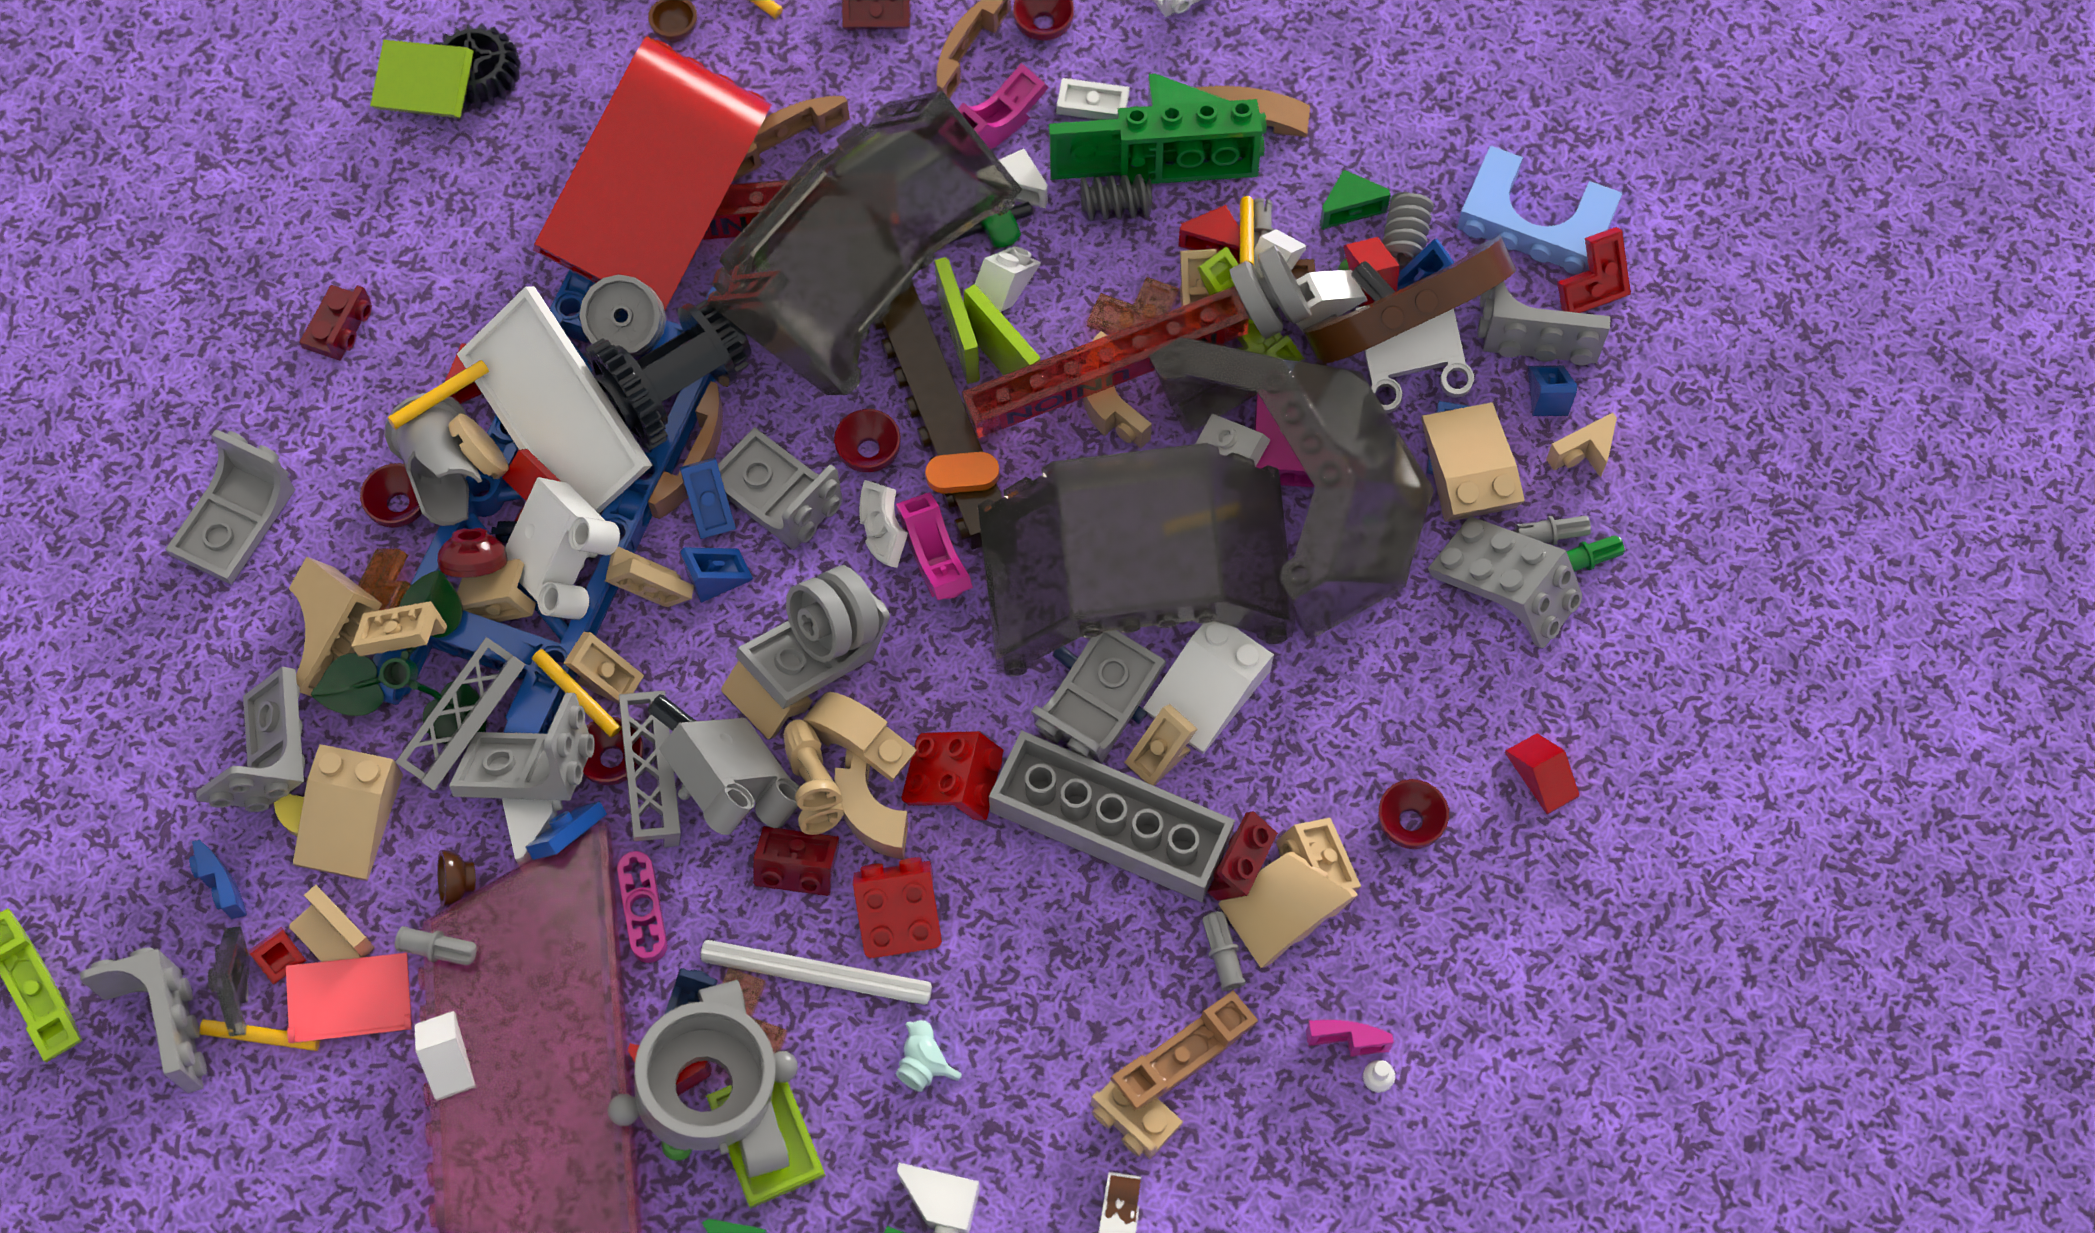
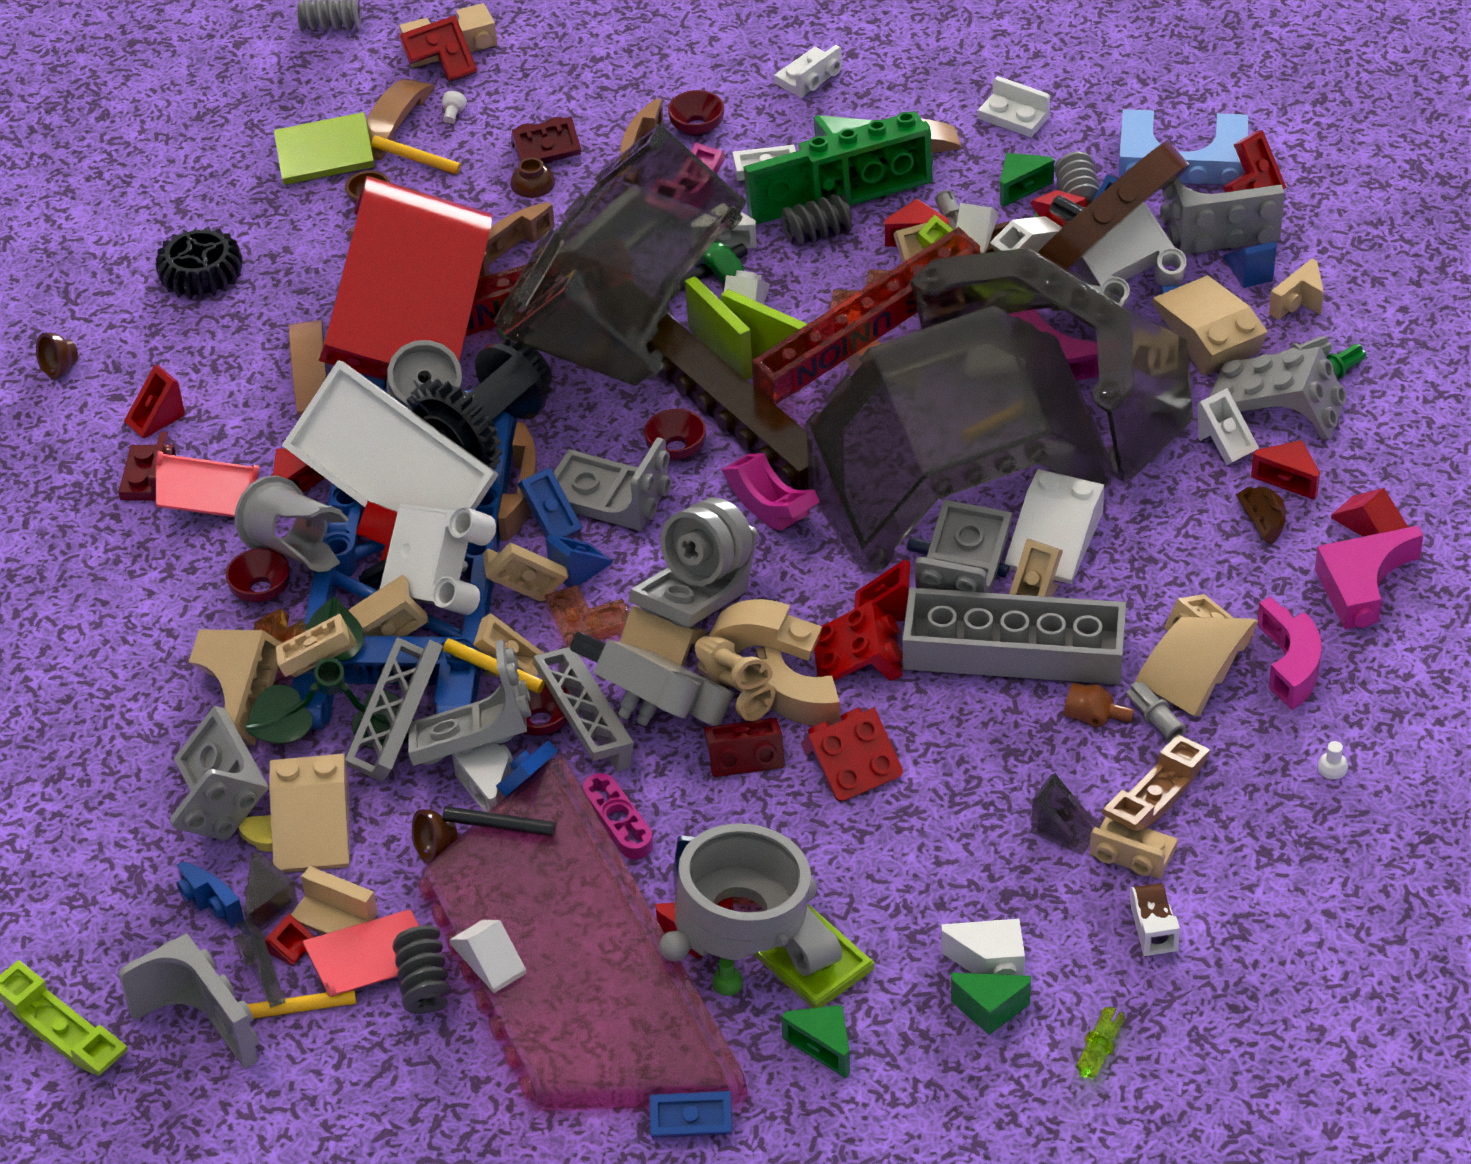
camera: 15 degrees left, 20 degrees down
(234, 509) = (112, 615): light grey bracket -> none
(269, 897) = (268, 892): none -> clear smoke slope
(296, 145) = (55, 354): none -> reddish brown piece
(368, 243) = (156, 404): none -> red slope
(381, 363) = (201, 484): none -> coral piece
(381, 1042) = (421, 969): none -> dark grey piece
(421, 78) = (157, 276): lime tile -> none
(435, 946) = (444, 875): light grey axle -> none
(438, 394) = (279, 473): yellow bar -> none
(471, 554) = (356, 579): dark red piece -> none
(478, 446) = (327, 495): tan tile -> none
(512, 893) = (499, 821): none -> black bar
(528, 266) = (307, 372): none -> medium nougat slope
(692, 650) = (573, 615): none -> clear orange tile
(816, 972) = (816, 819): white axle -> none
(848, 50) = (532, 178): none -> reddish brown piece
(882, 529) = (706, 481): white tile -> none
(923, 1058) = (926, 854): light aqua animal -> none
(962, 472) = (773, 427): orange tile -> none
(1002, 716) = (888, 591): none -> red slope
(1076, 1061) = (1061, 817): none -> clear smoke slope
(1164, 923) = (1094, 705): none -> dark orange piece
(1243, 858) = (1144, 633): dark red bracket -> none
(1247, 229) = (944, 209): yellow bar -> none
(1266, 294) = (990, 224): light grey wheel -> none
(1361, 1037) = (1303, 736): dark pink slope -> none
(1382, 102) = (1016, 107): none -> white bracket
(1390, 948) = (1297, 672): none -> dark pink arch
(1416, 797) = (1275, 562): dark red piece -> none
(1435, 610) = (1224, 423): none -> white slope
(1435, 727) = (1265, 511): none -> reddish brown plate
(1481, 680) = (1288, 468): none -> red slope
(1497, 836) = (1356, 567): none -> dark pink arch

